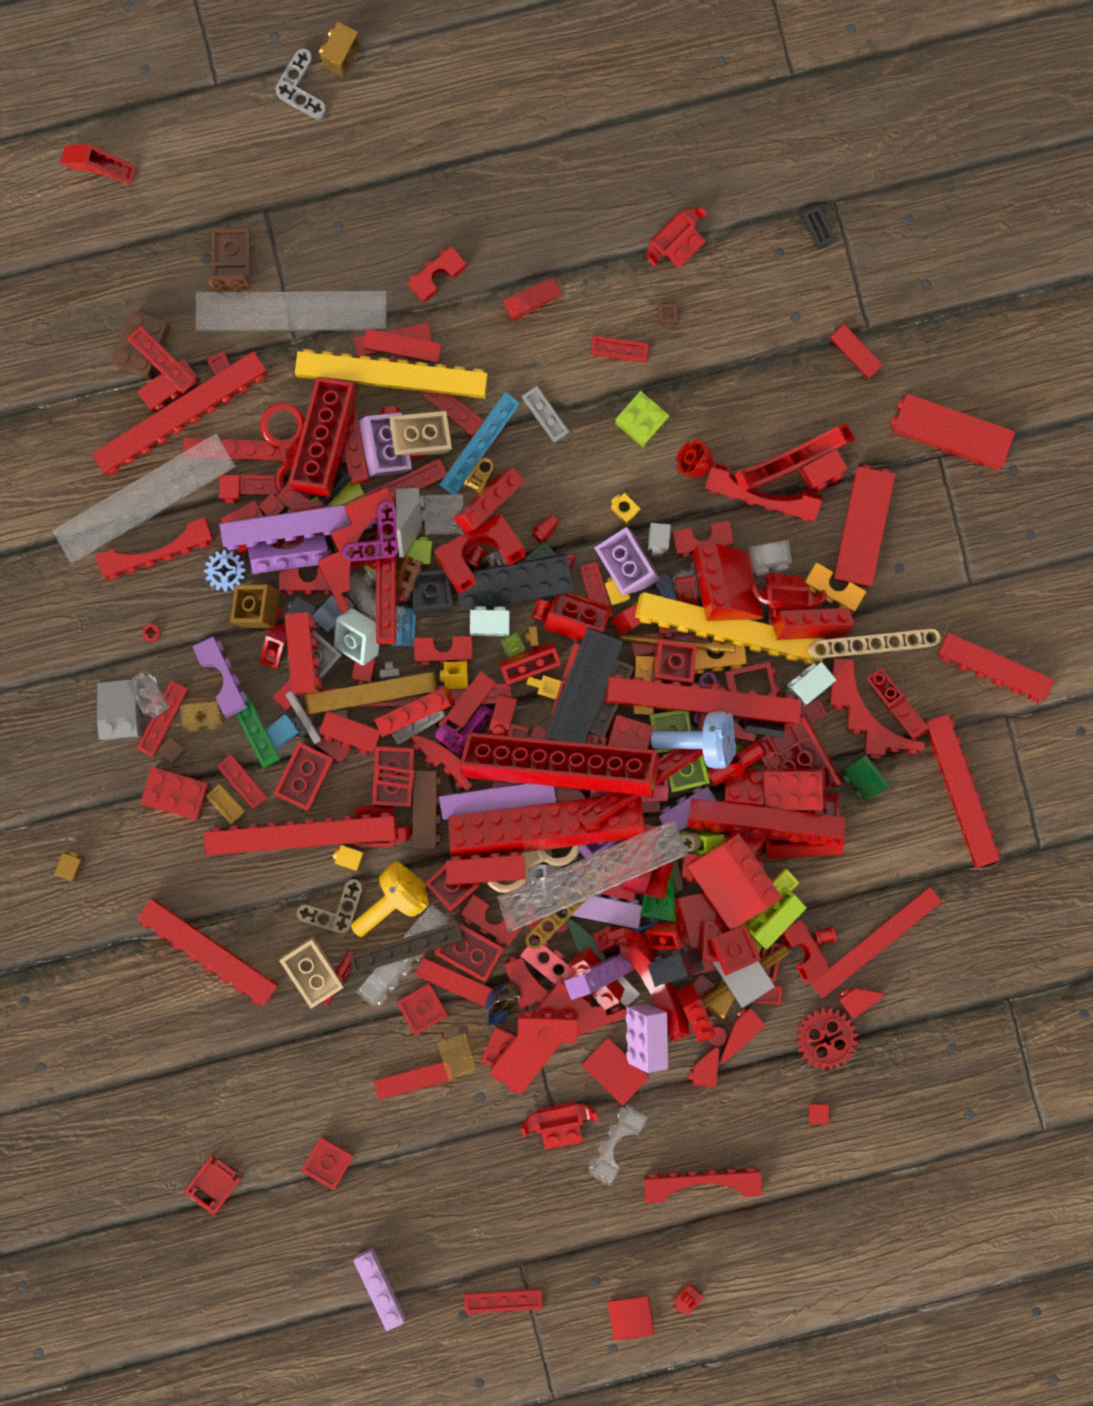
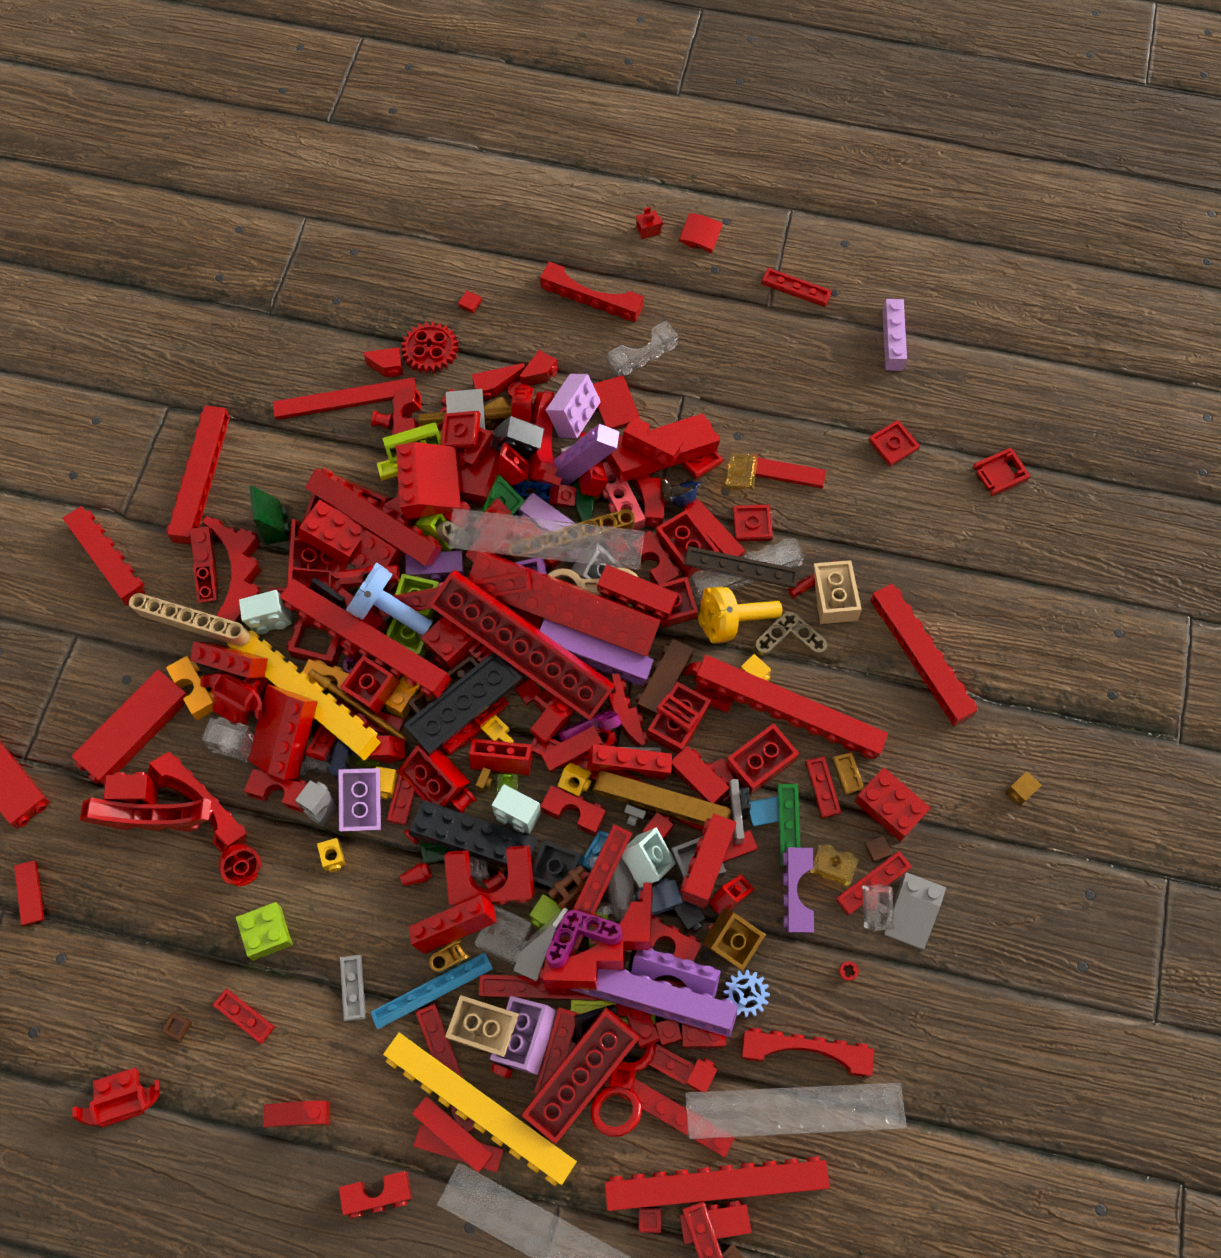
camera: 155 degrees left, 20 degrees down
(559, 1123) = (682, 385): red plate -> none

